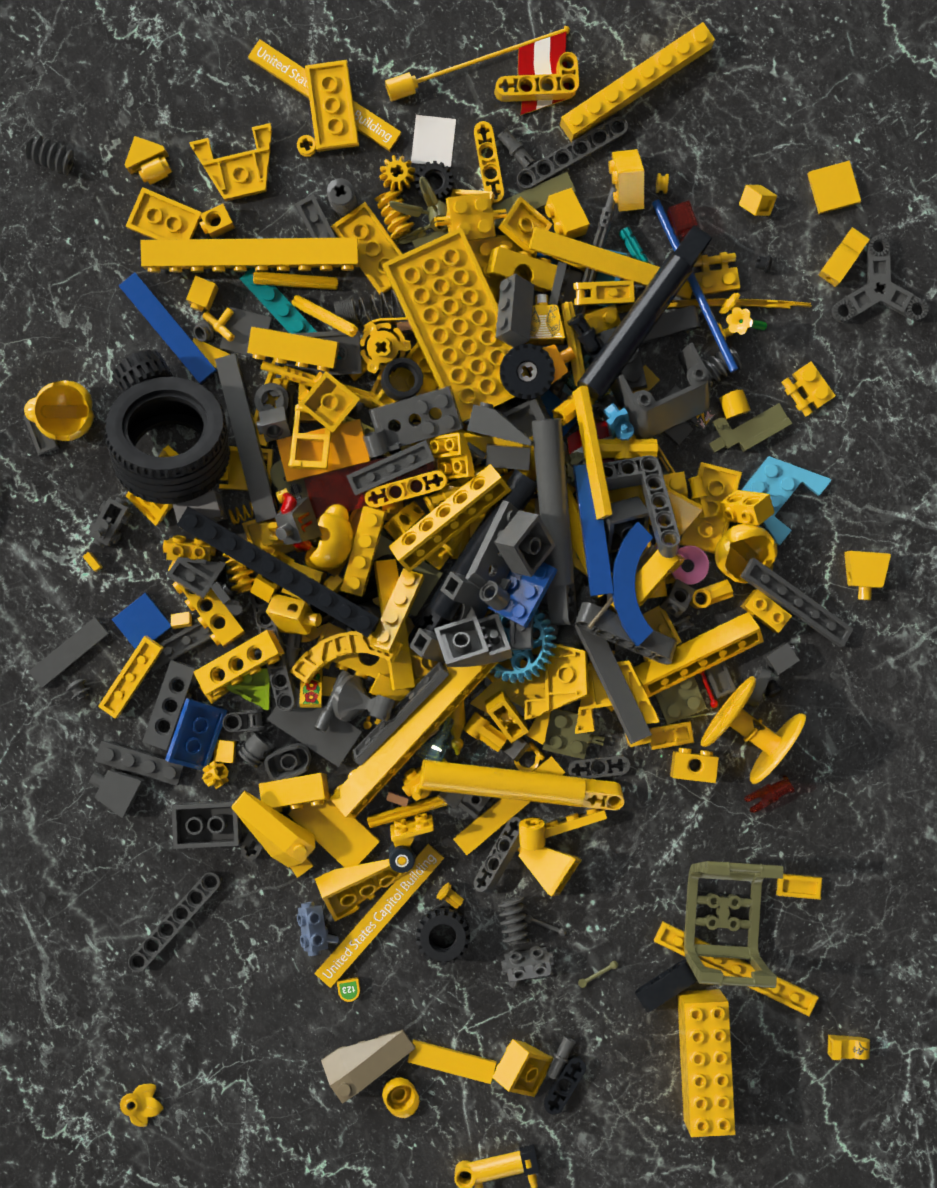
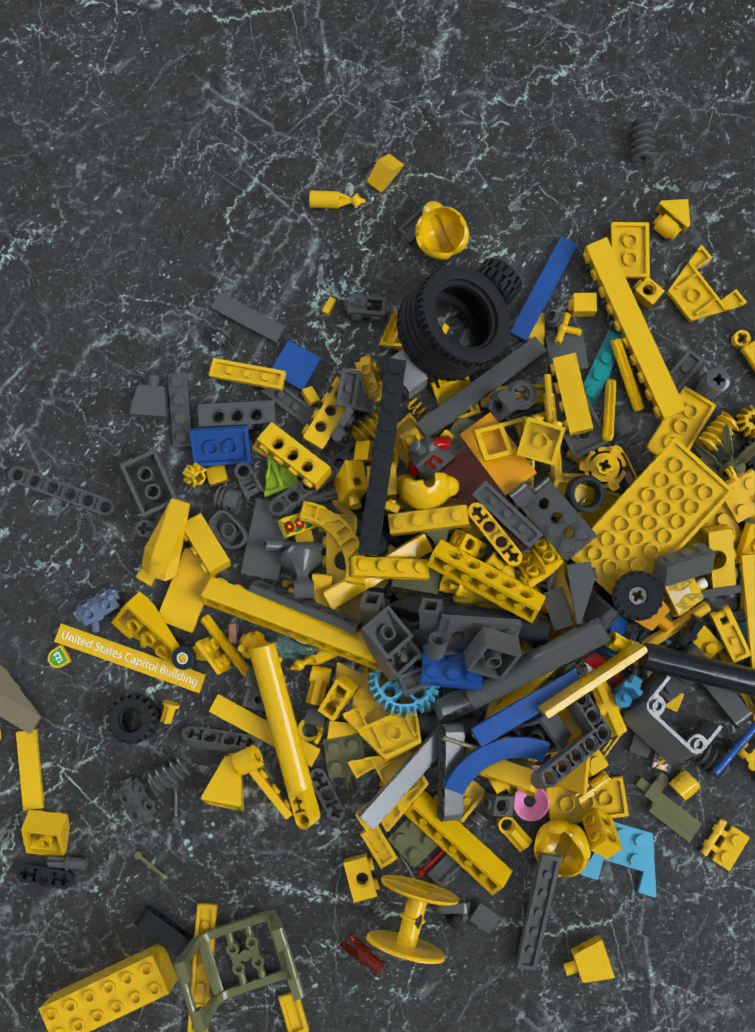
camera: 75 degrees right, 5 degrees down
(766, 611) = (519, 886): yellow brick -> none

